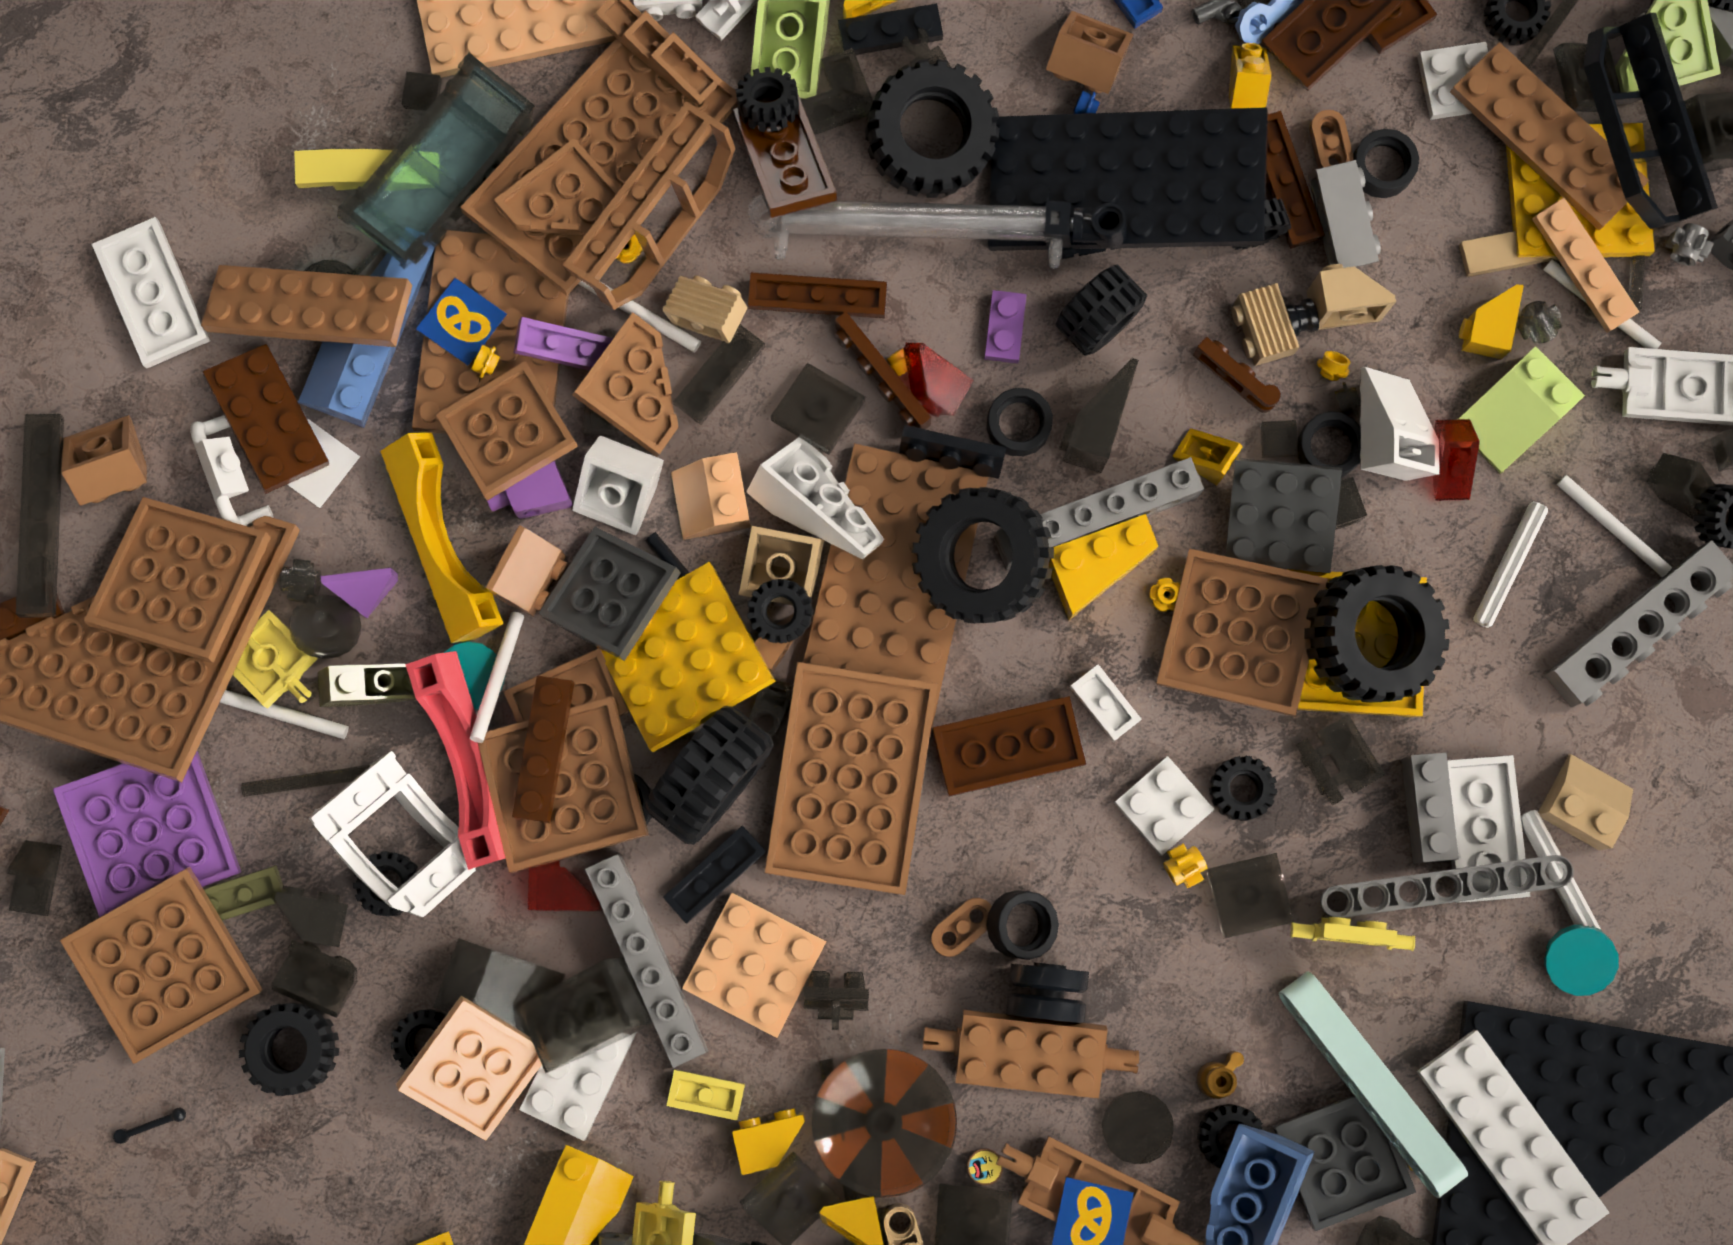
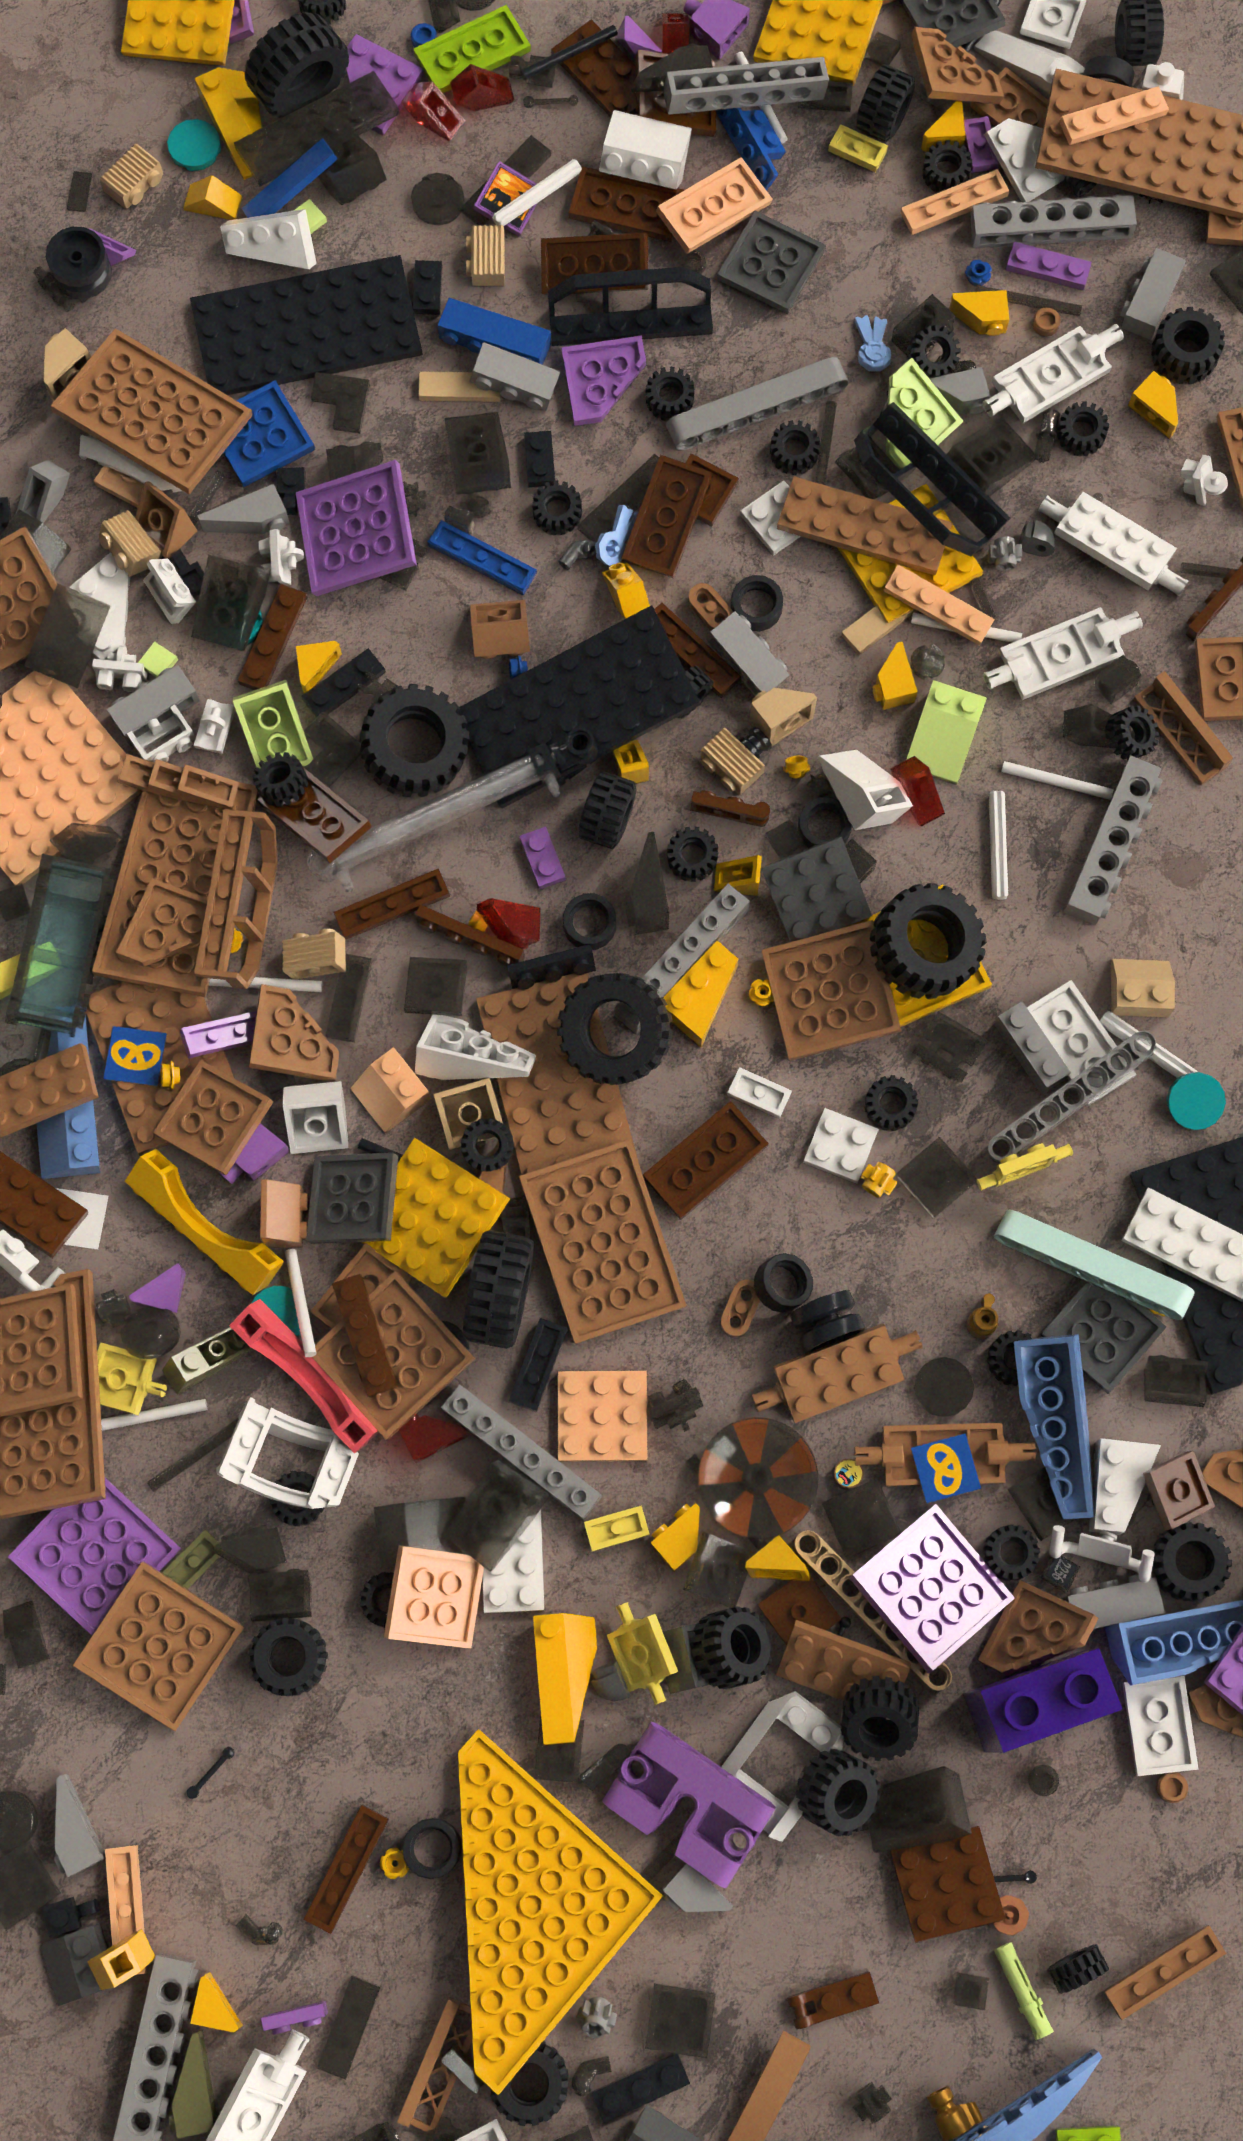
camera: 25 degrees left, 5 degrees down
(526, 64) = (85, 842): none -> clear smoke slope
(1155, 271) = (631, 762): none -> yellow slope
(1169, 384) = (692, 837): none -> black tyre

